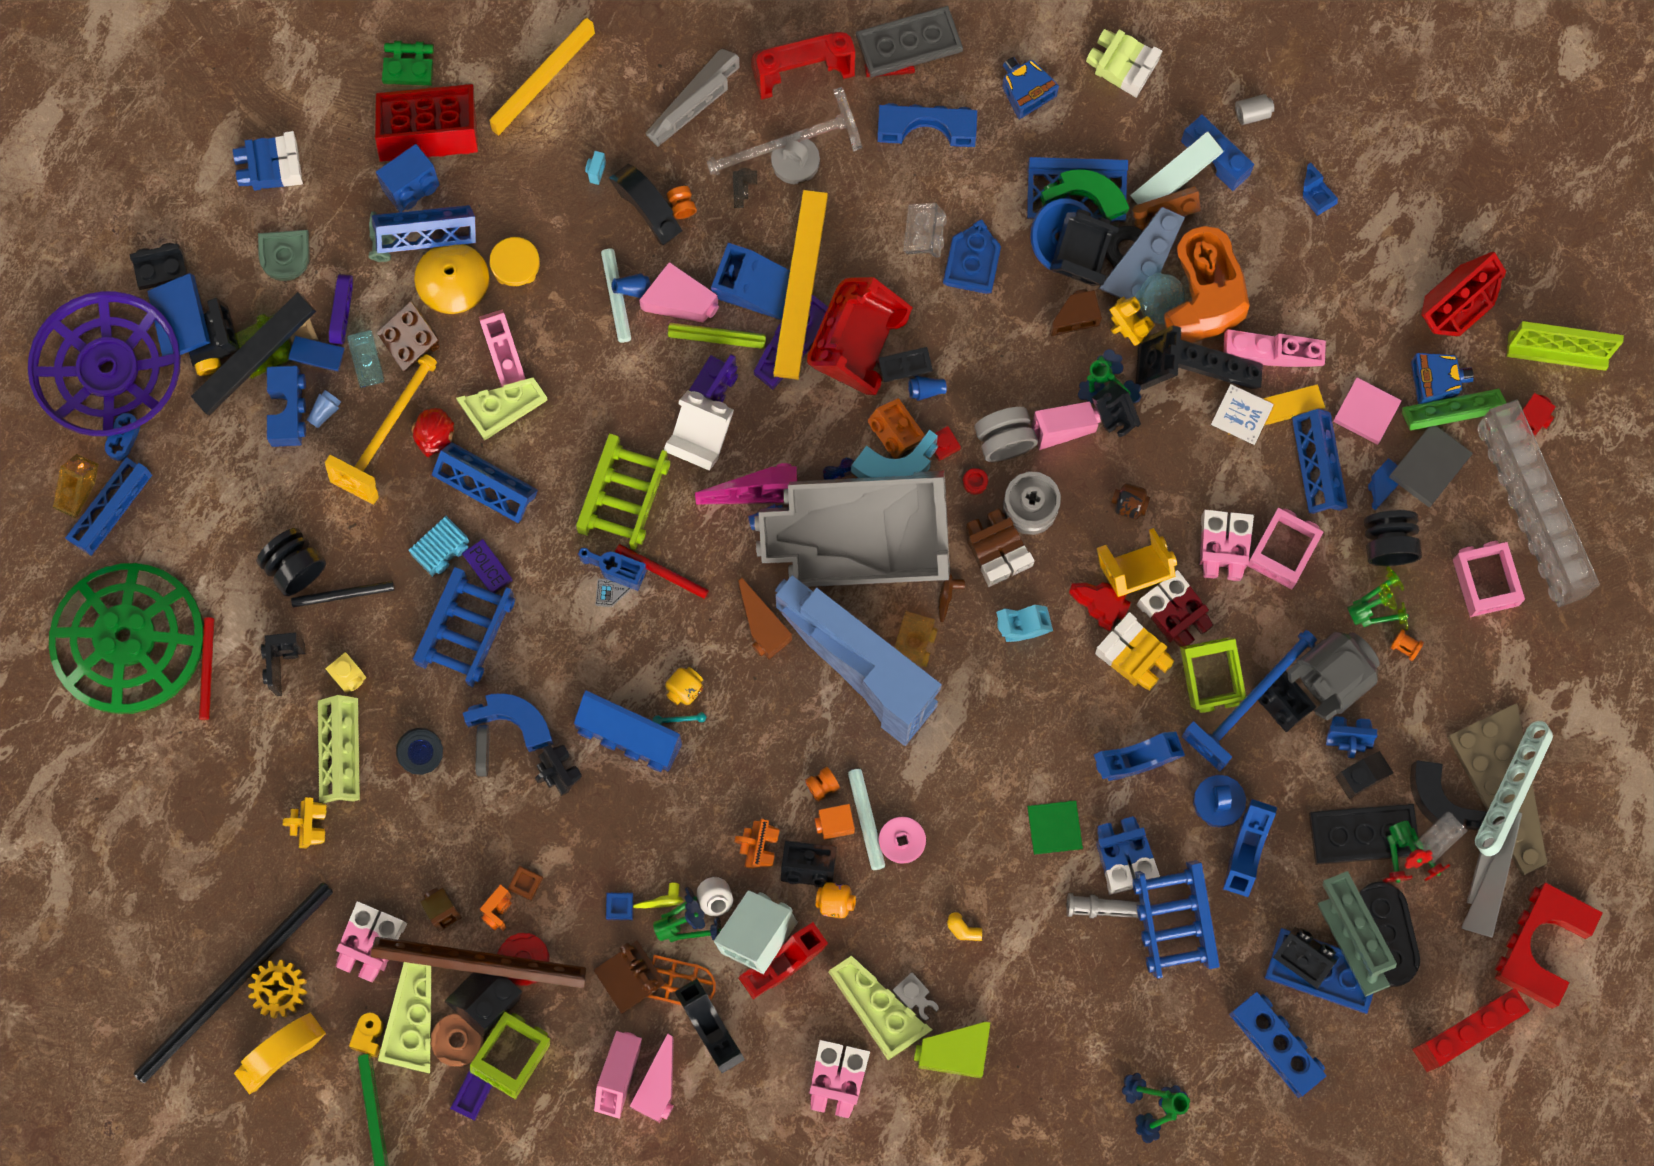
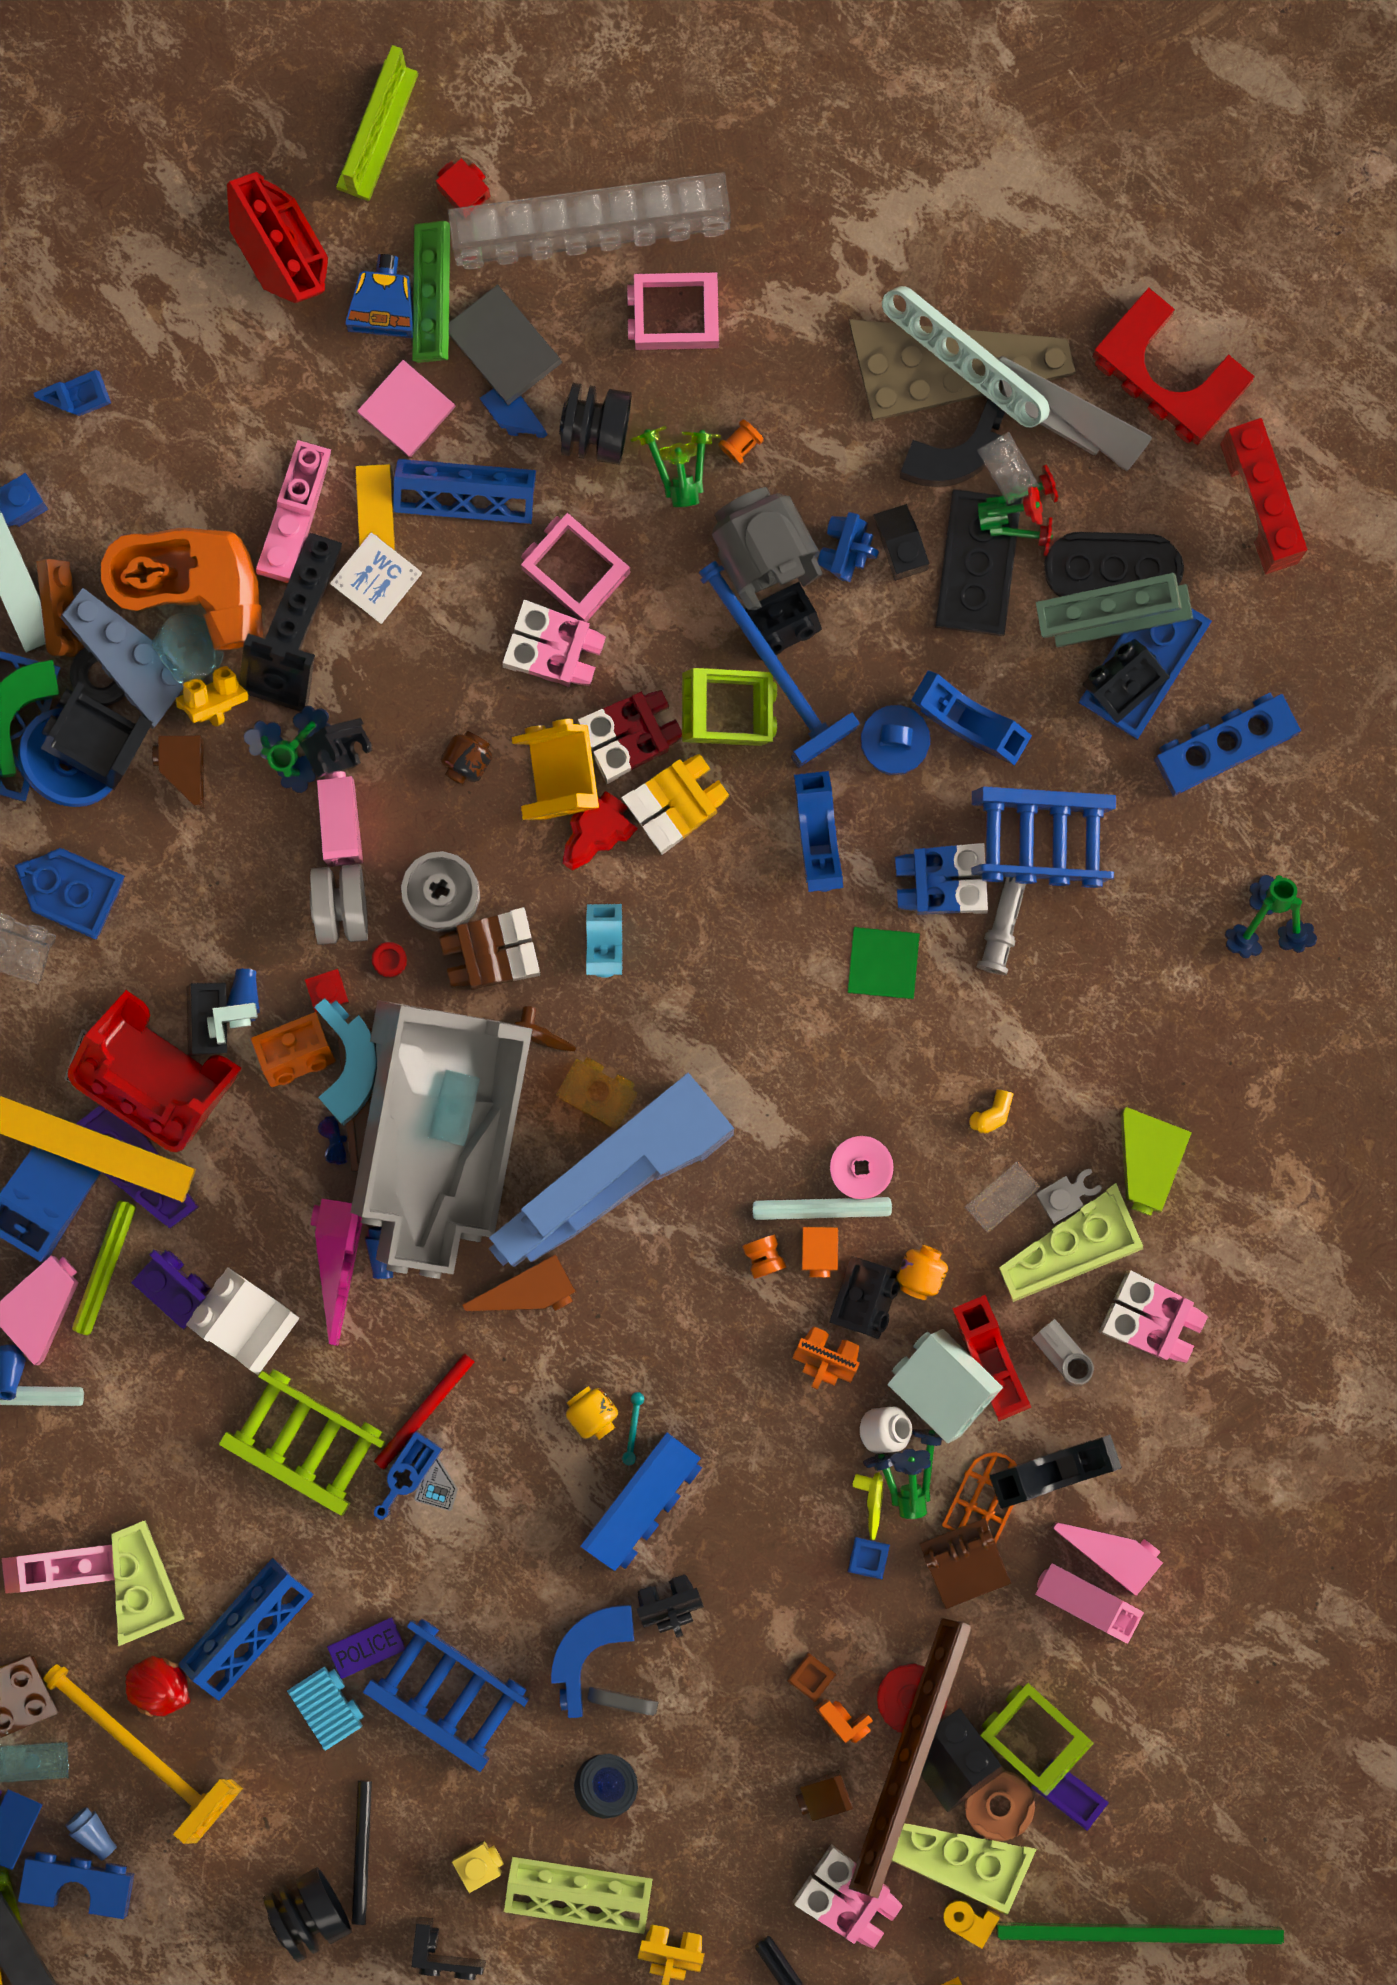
camera: 75 degrees left, 10 degrees up
(799, 1015) = (1061, 1351): none -> light grey piece
(880, 541) = (454, 1108): none -> clear light blue slope
(903, 948) = (1002, 1197): none -> clear tile
(911, 379) = (236, 1015): none -> light aqua bracket

